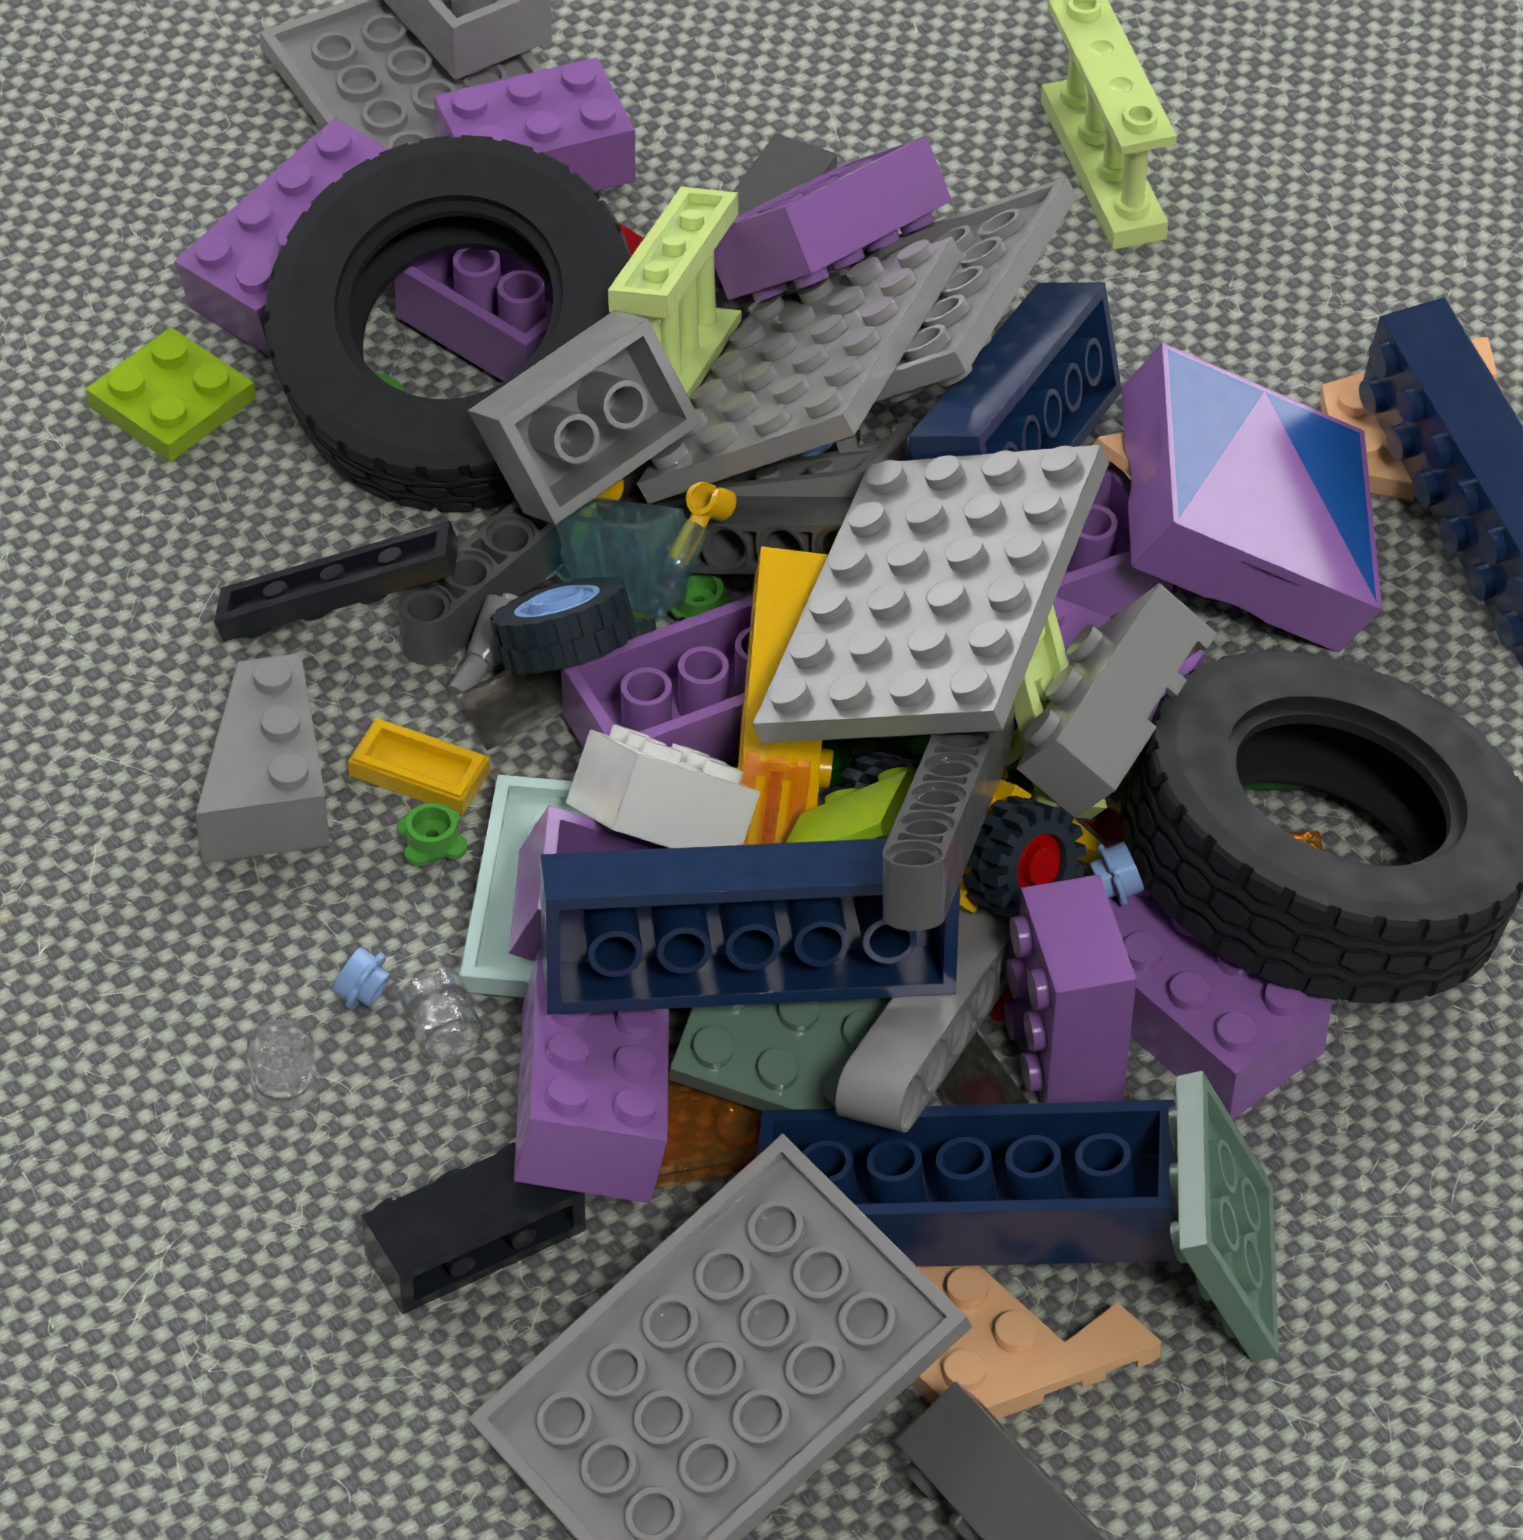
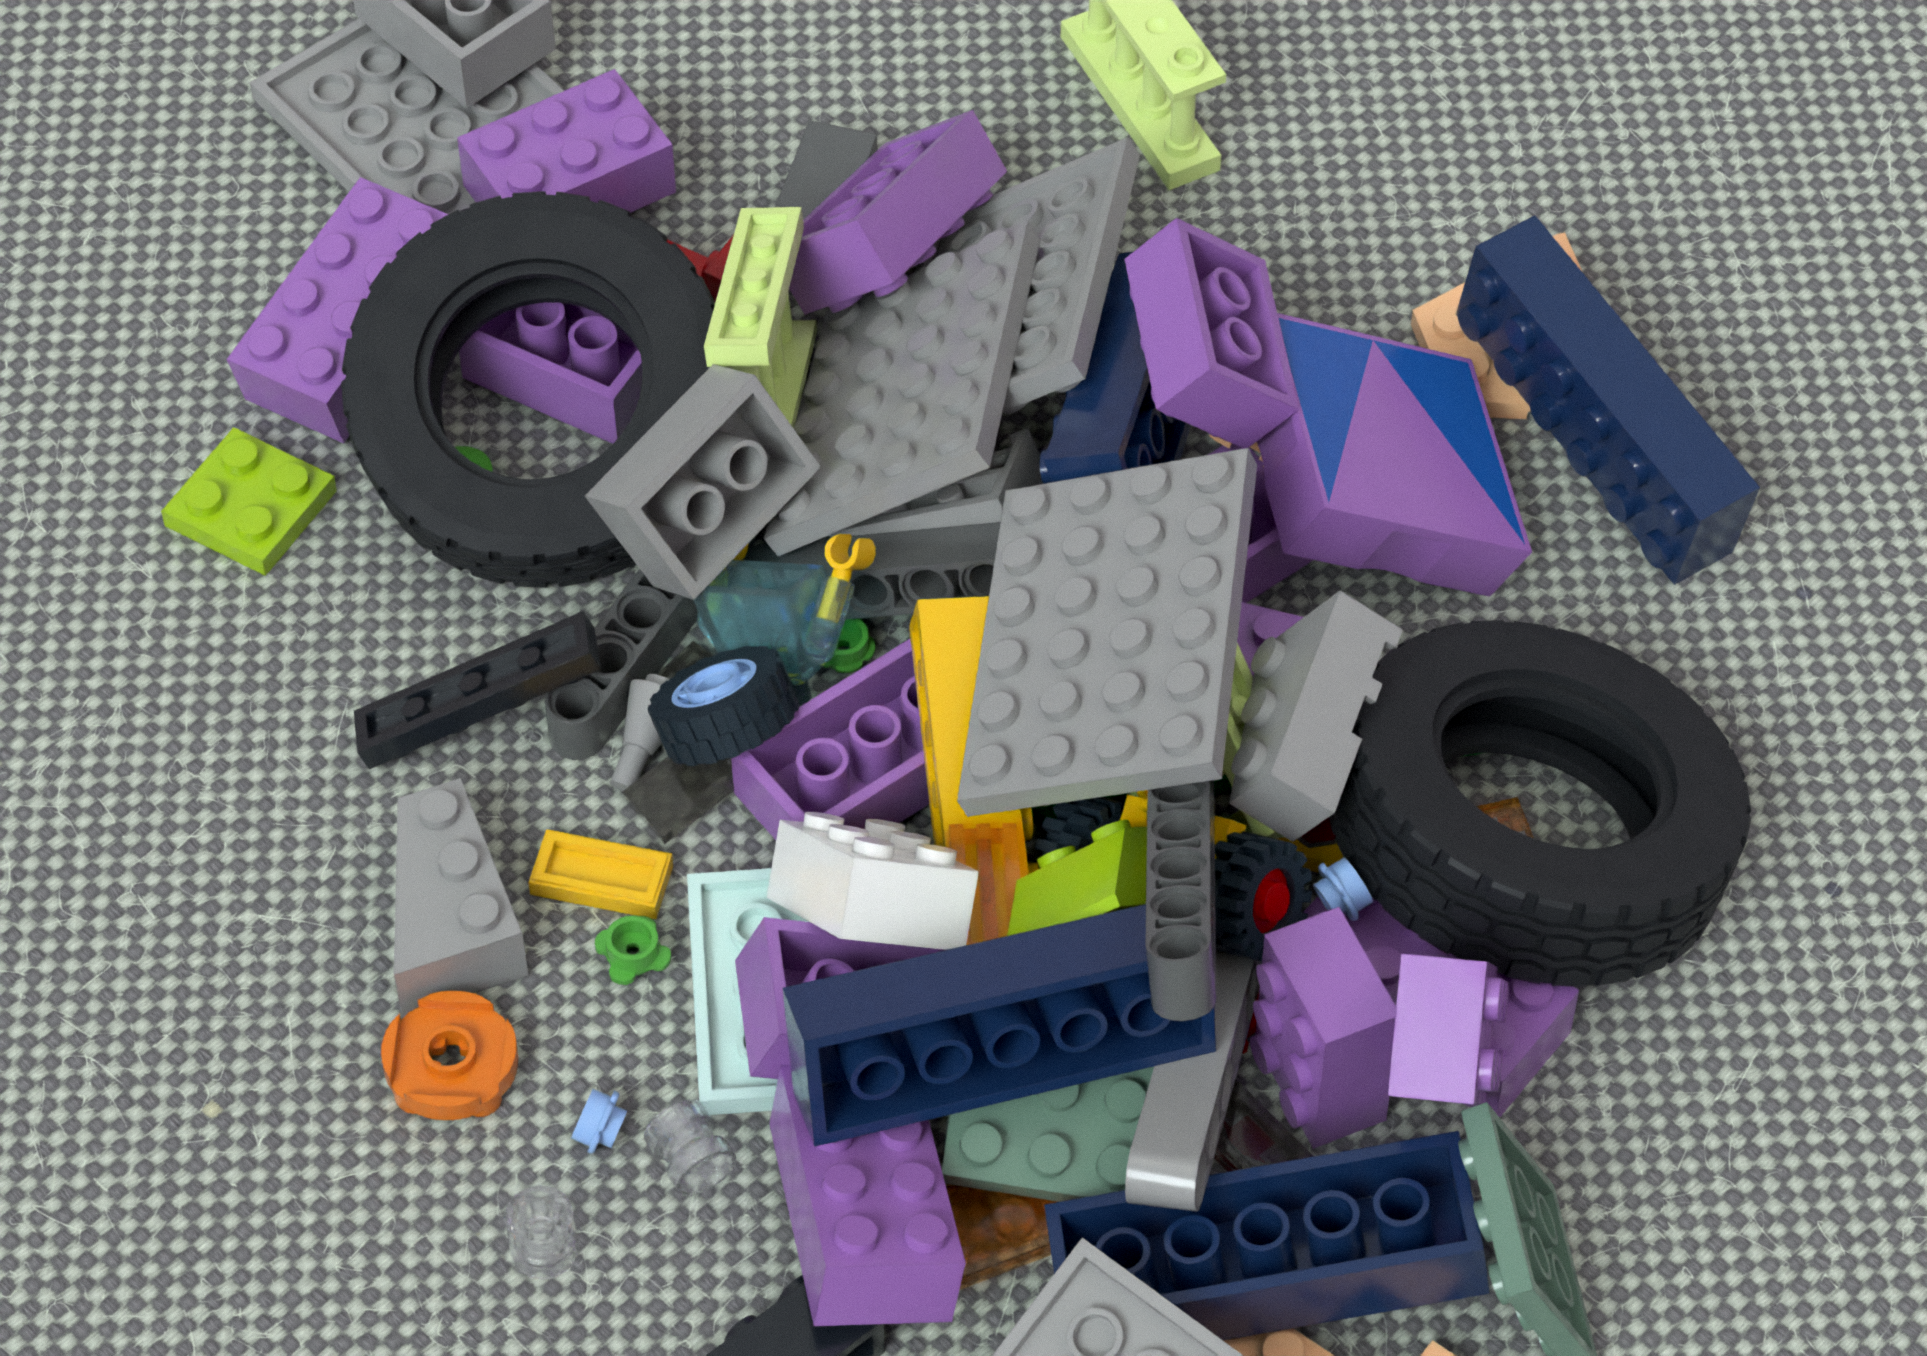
camera: 10 degrees left, 5 degrees up
(239, 931) = (455, 1090): none -> orange plate
(1098, 351) = (1211, 334): none -> medium lavender brick
(1178, 999) = (1446, 1030): none -> brick

